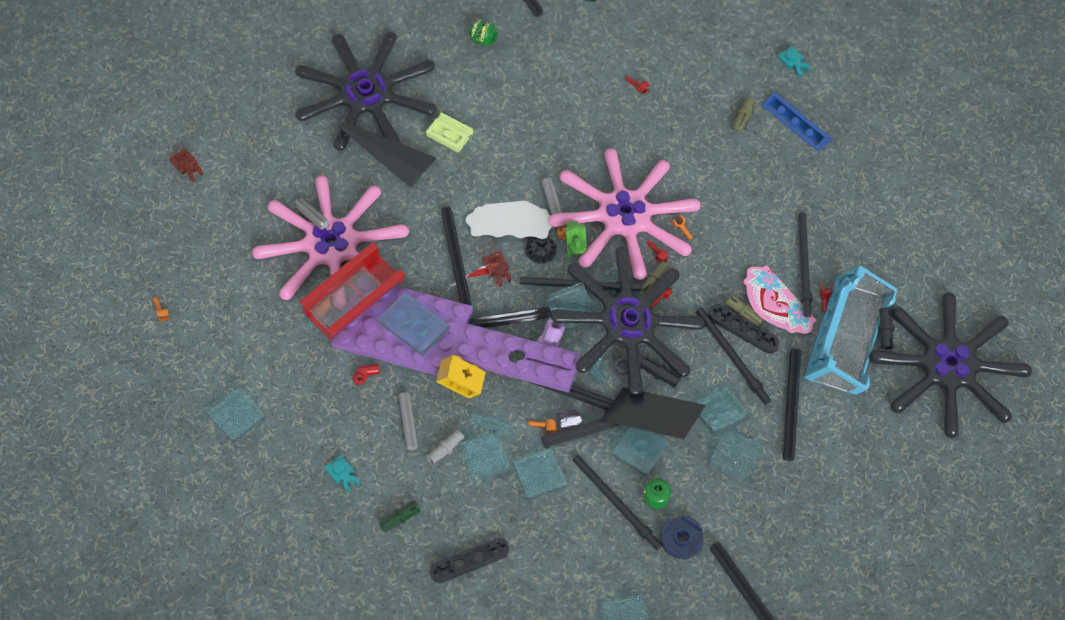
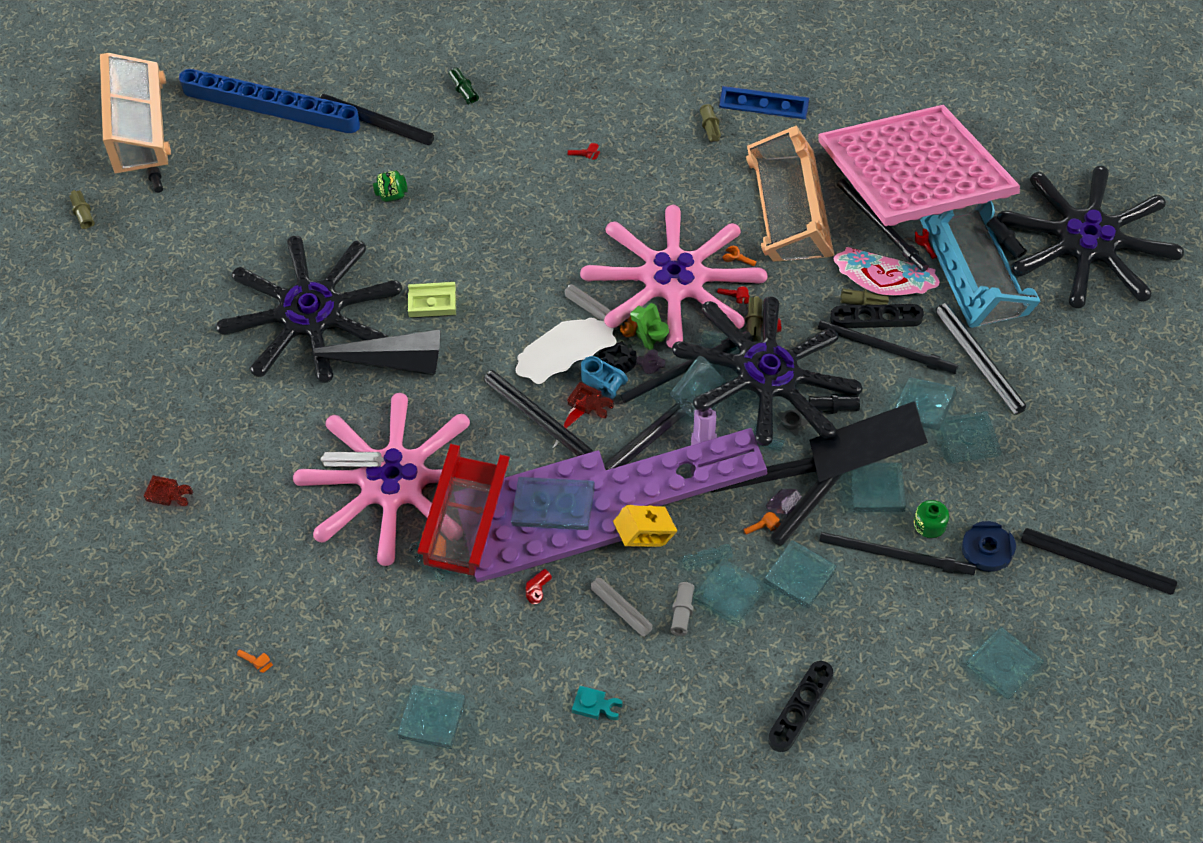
camera: 30 degrees left, 5 degrees down
(399, 516) = (693, 708): dark green axle -> none
(518, 259) = (604, 378): none -> dark azure piece
(556, 270) = (651, 367): none -> clear purple plate
(754, 205) = (790, 197): none -> clear windscreen
(793, 59) = (714, 50): teal plate -> none
(857, 234) = (917, 165): none -> bright pink plate

